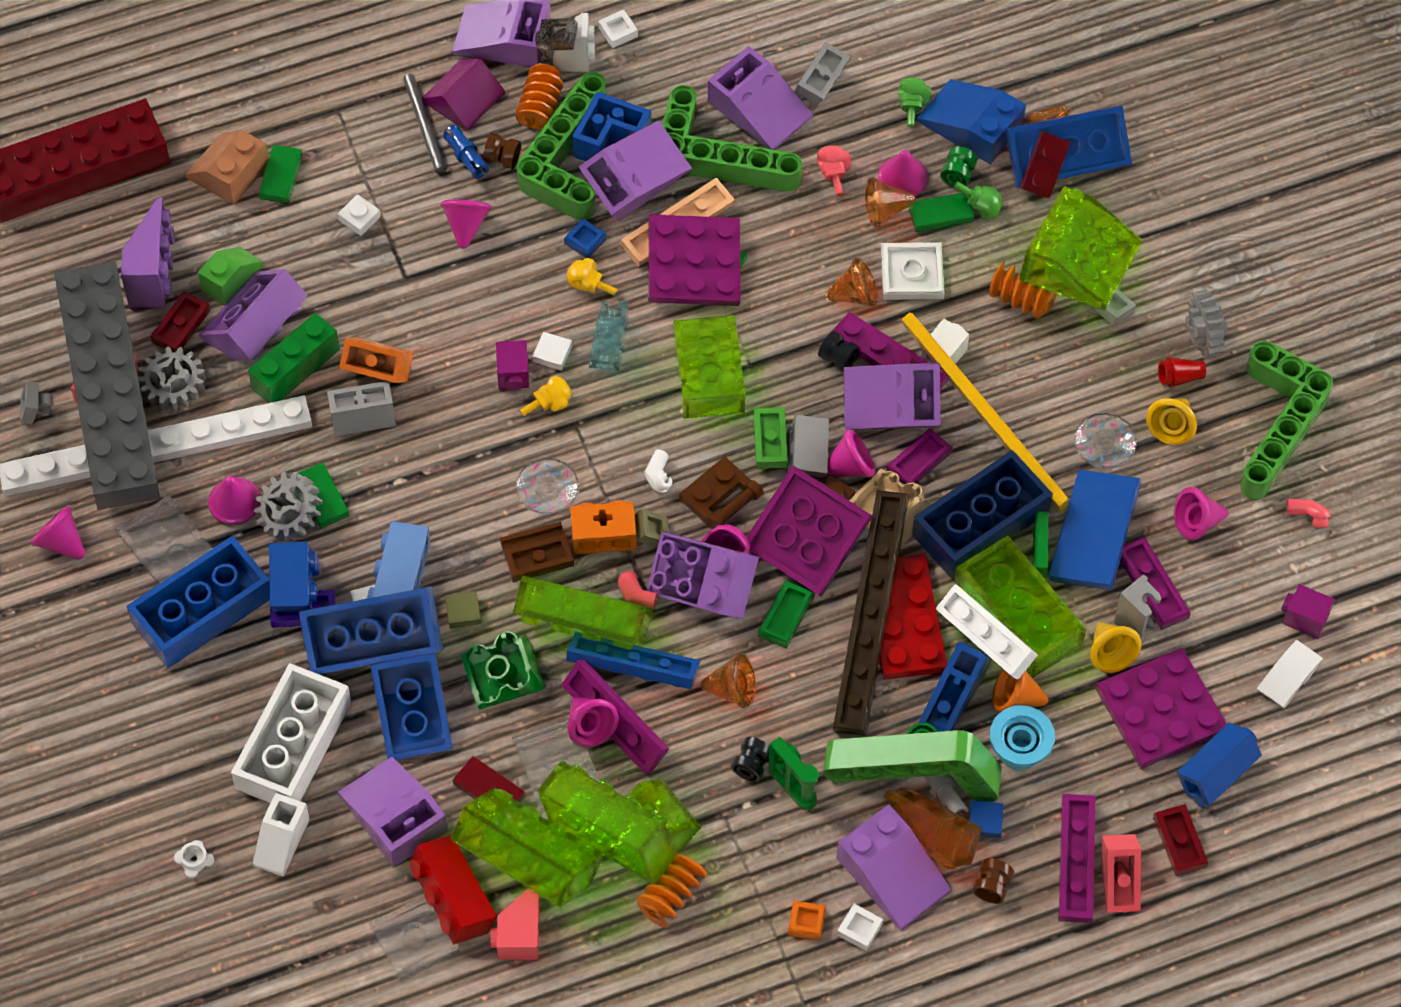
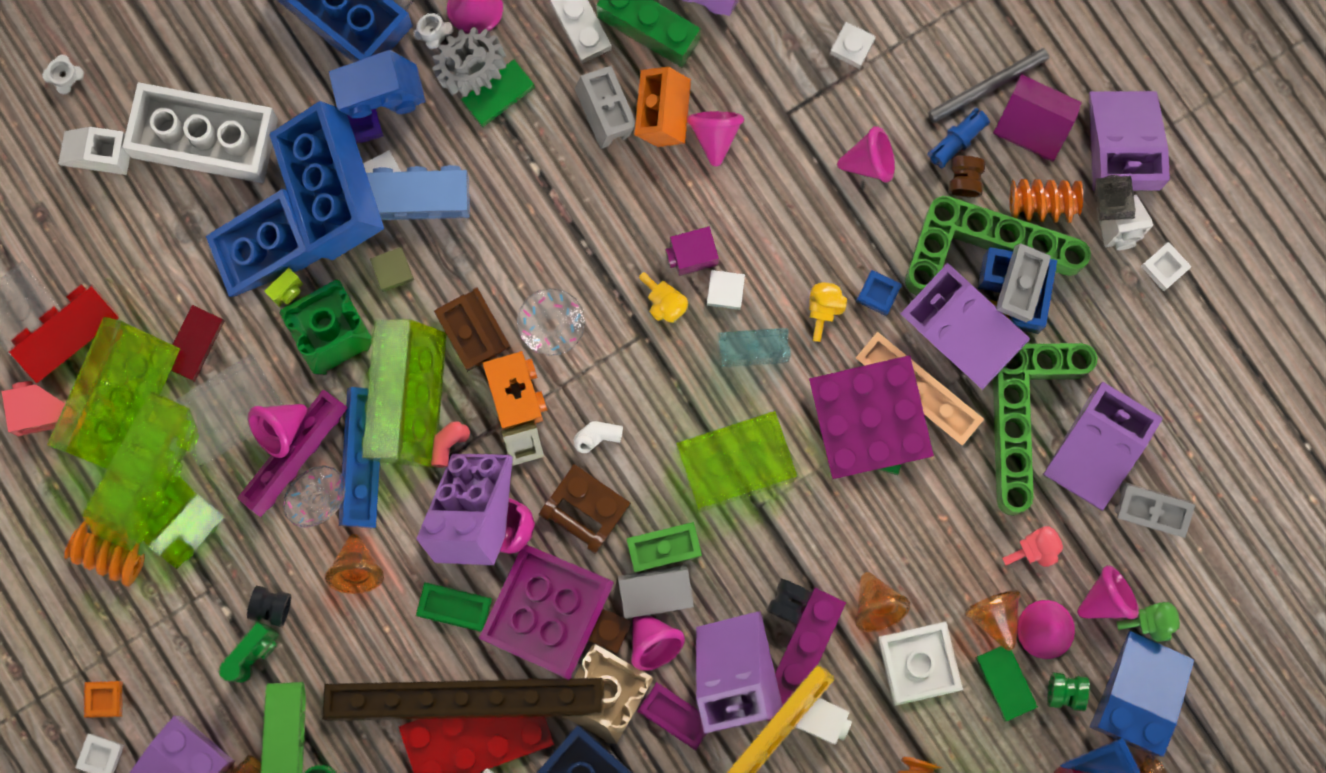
camera: 75 degrees right, 20 degrees up
(244, 527) = (432, 30): none -> white plate
(394, 810) = (143, 252): medium lavender slope -> none
(409, 327) = (715, 132): none -> dark pink hat
(458, 696) = (284, 288): none -> lime plate
(611, 112) = (1023, 282): none -> light grey plate
(649, 699) = (314, 496): none -> clear dish
(887, 123) = (1109, 597): none -> dark pink hat
(984, 200) = (1029, 727): bright green piece -> none

